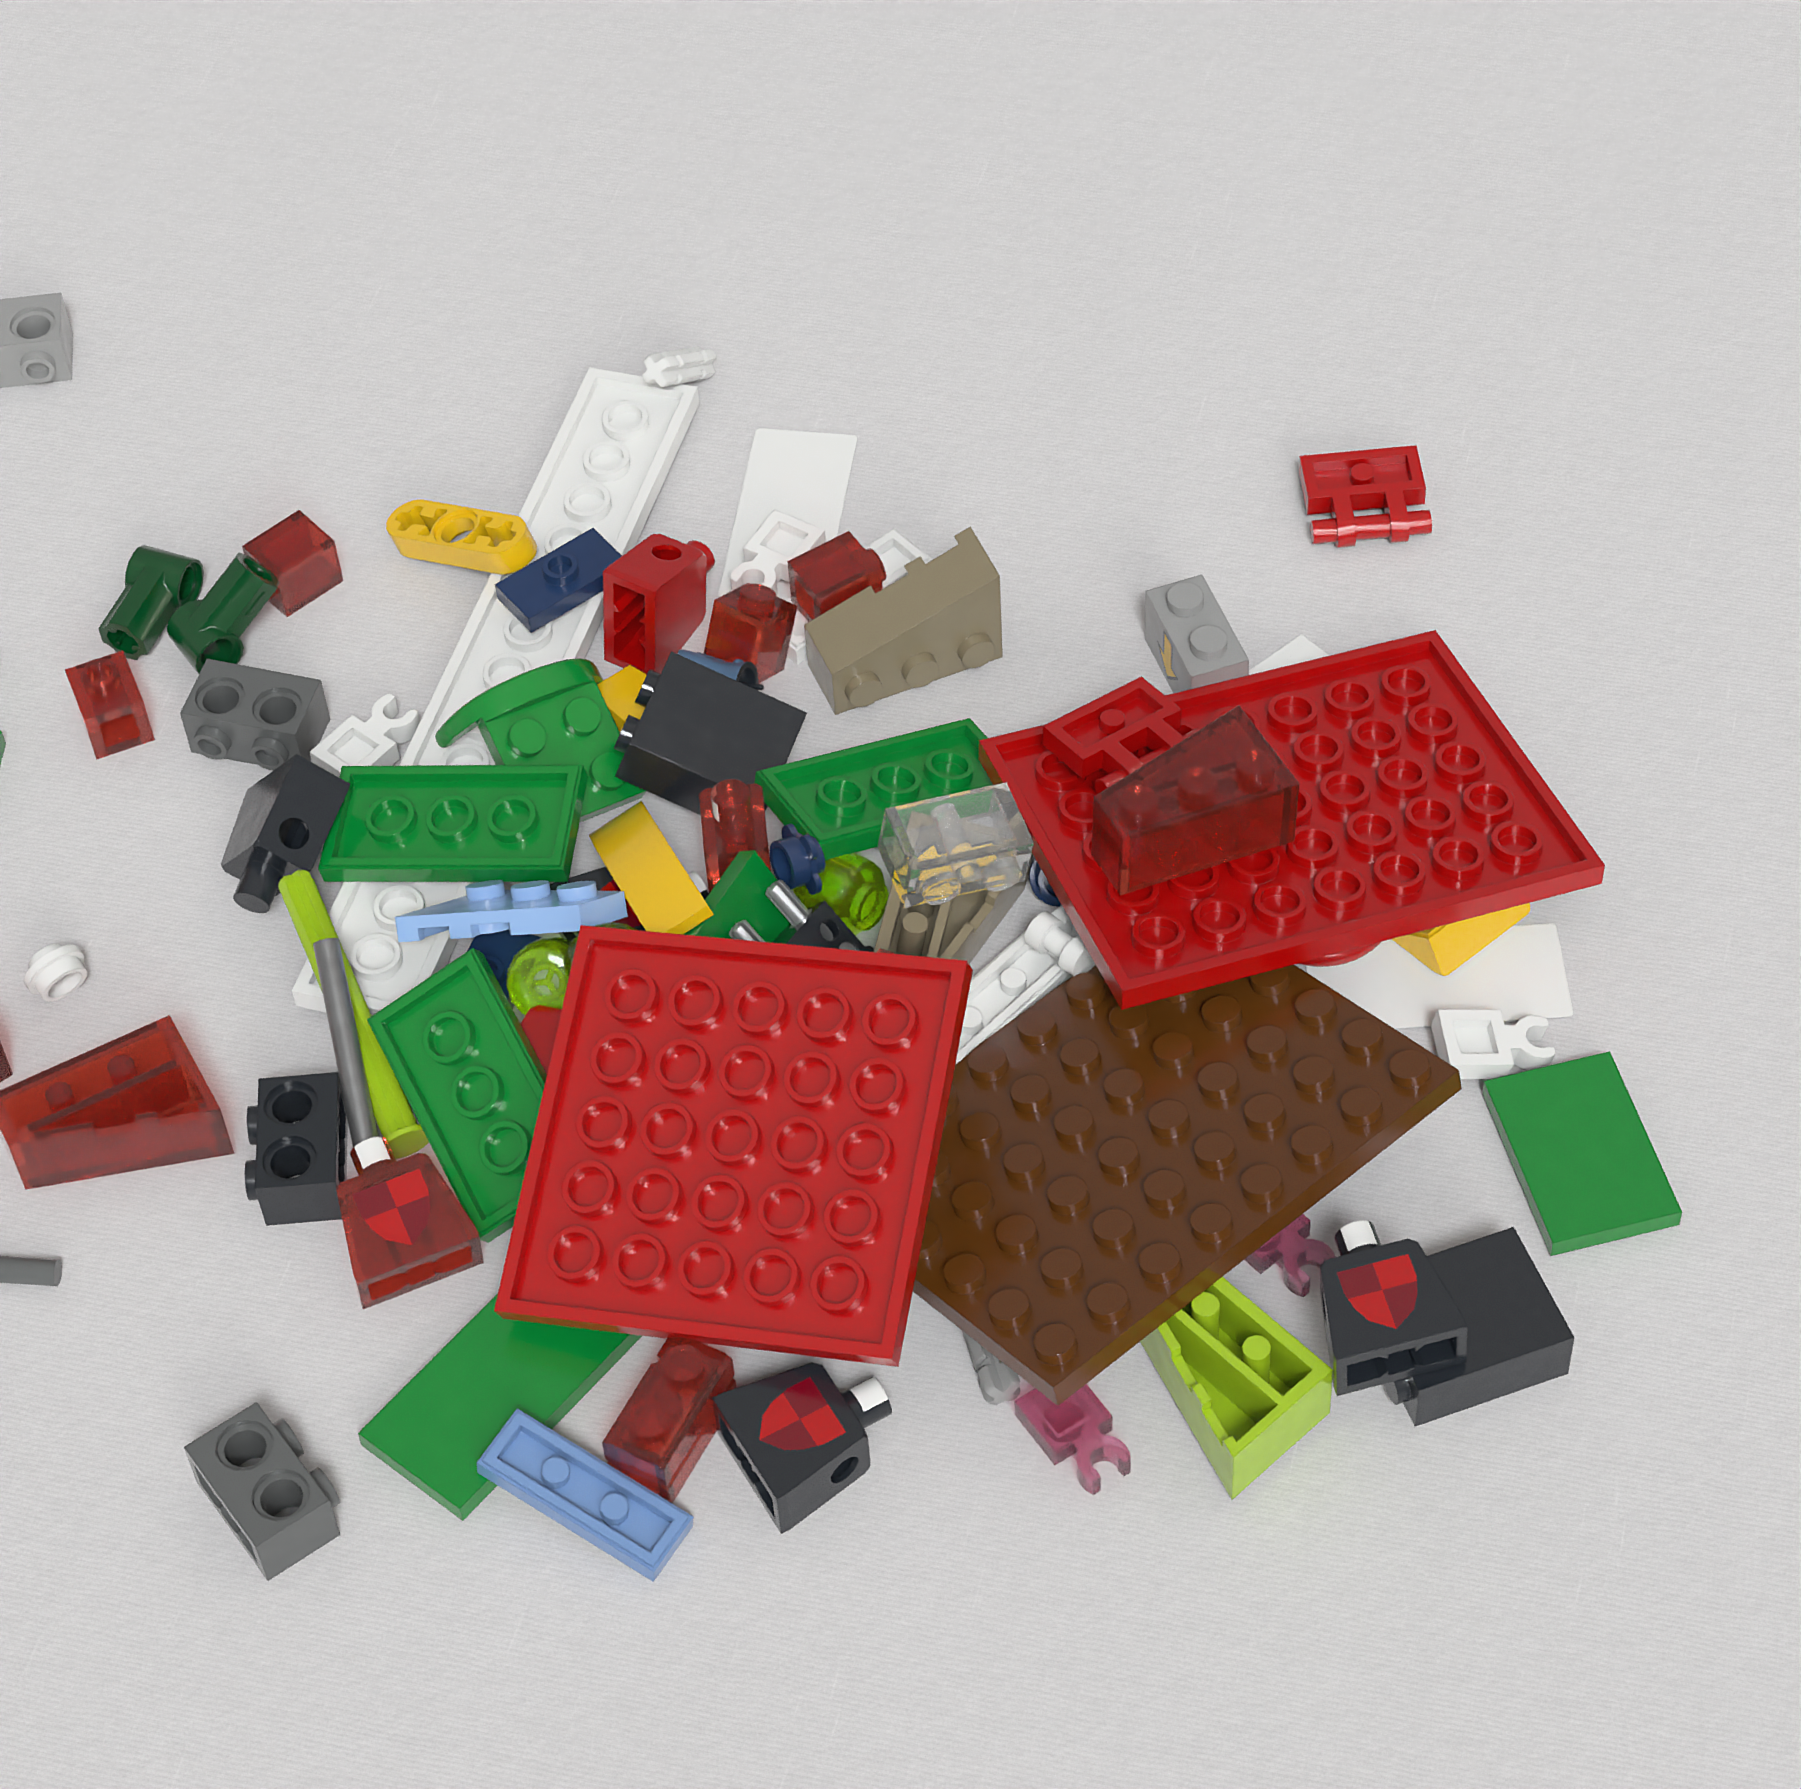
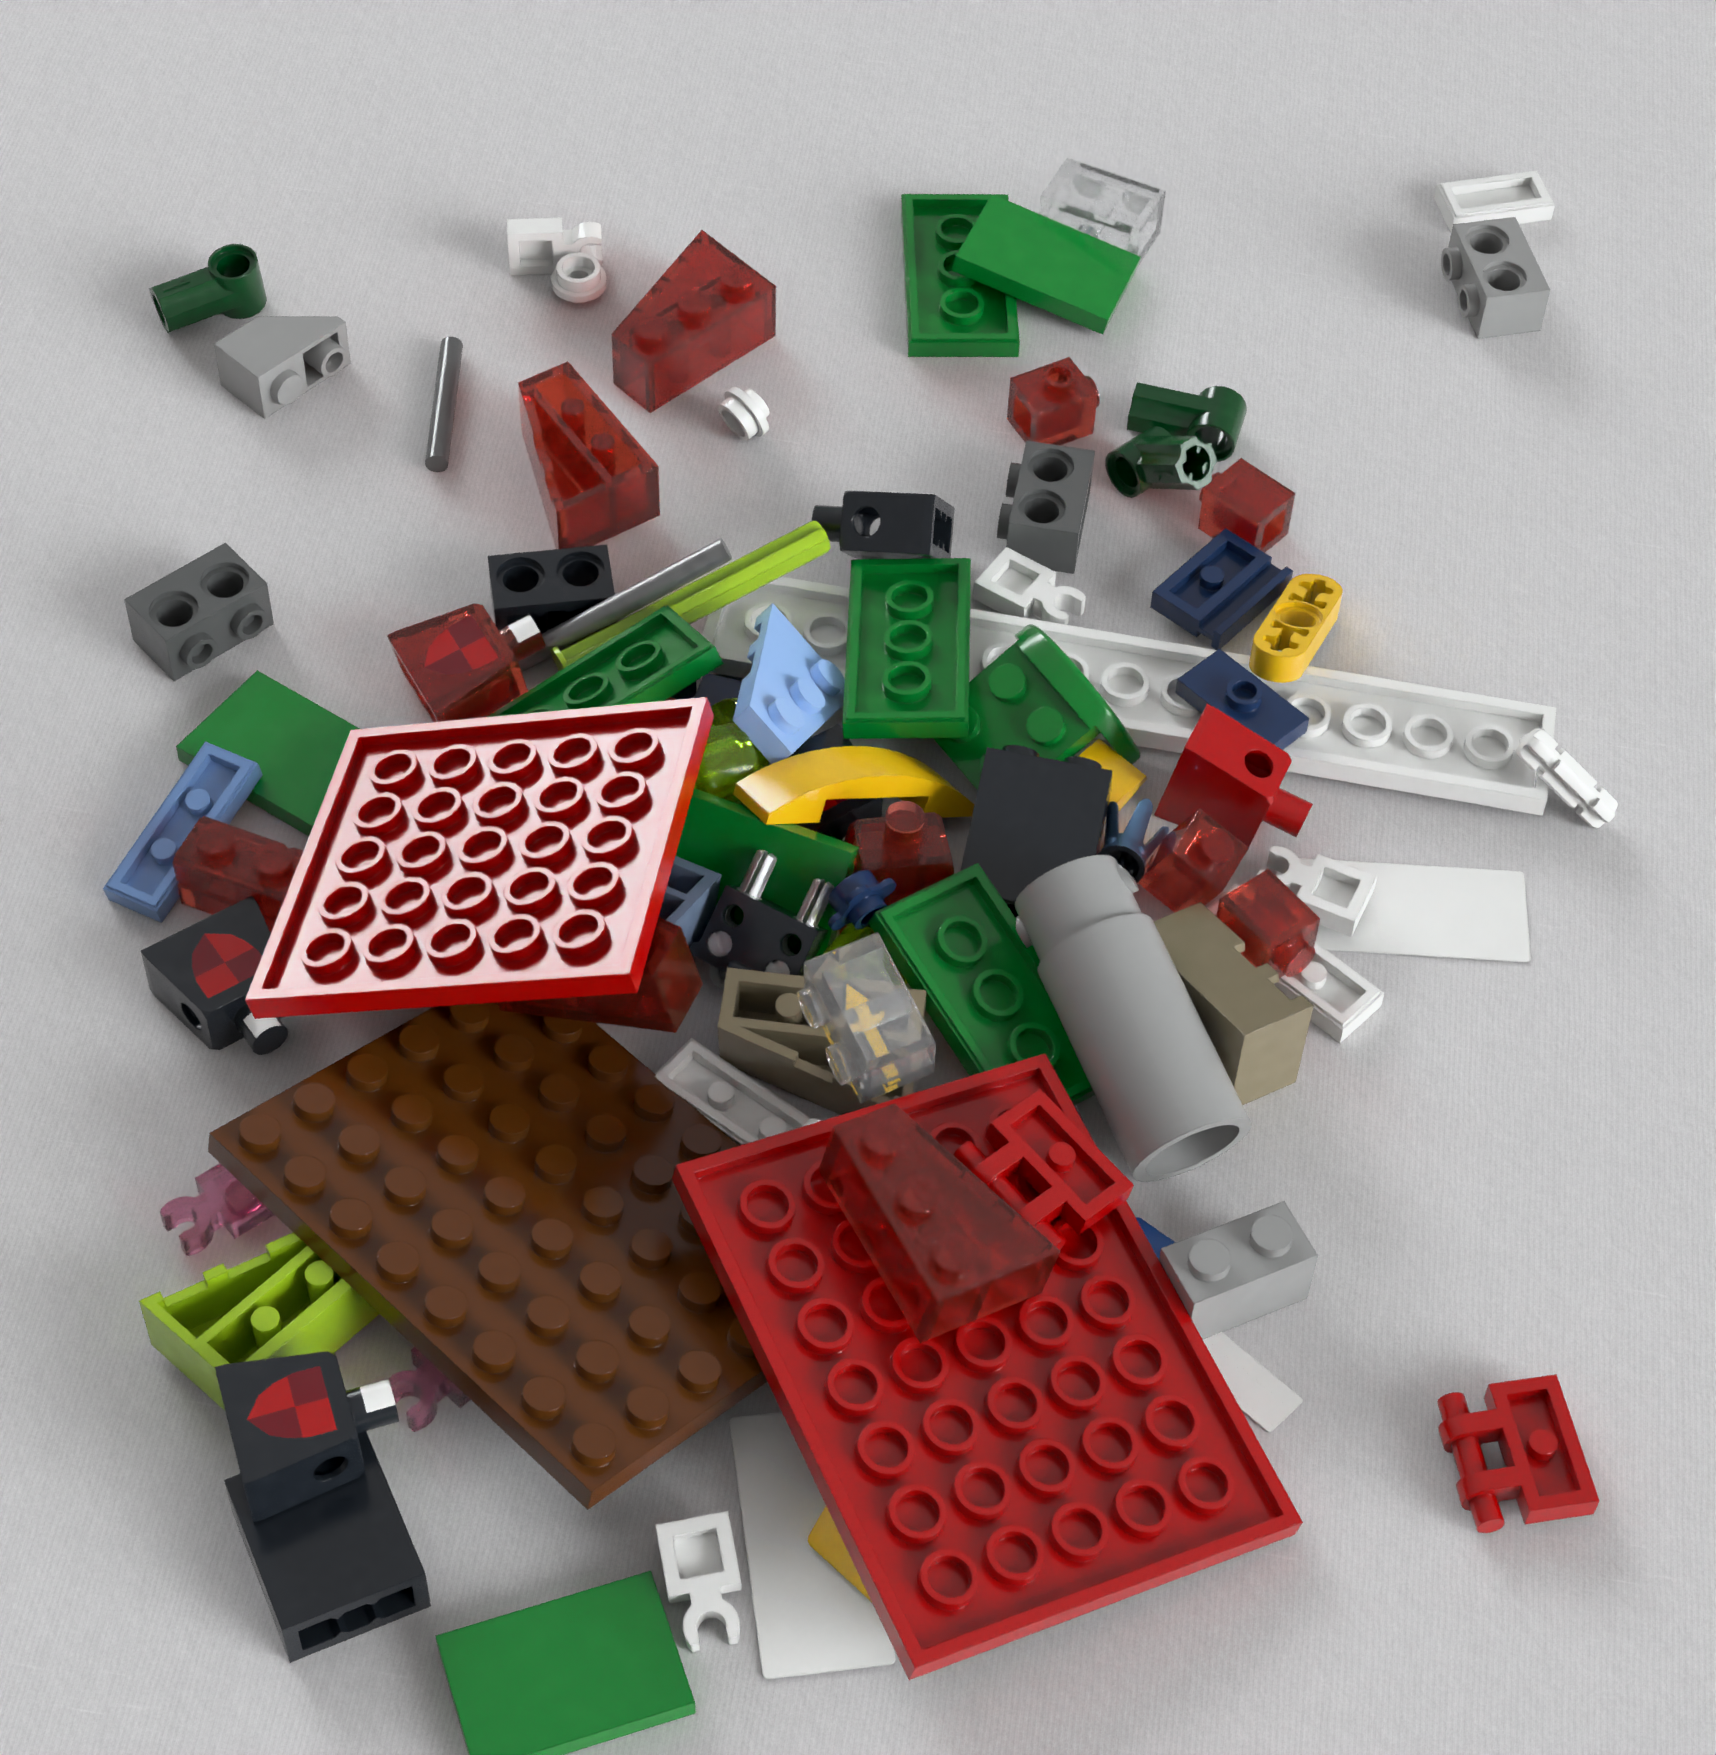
camera: 80 degrees right, 0 degrees up
(389, 595) = (1221, 589): none -> dark blue plate
(947, 673) = (1130, 1019): none -> light grey piece

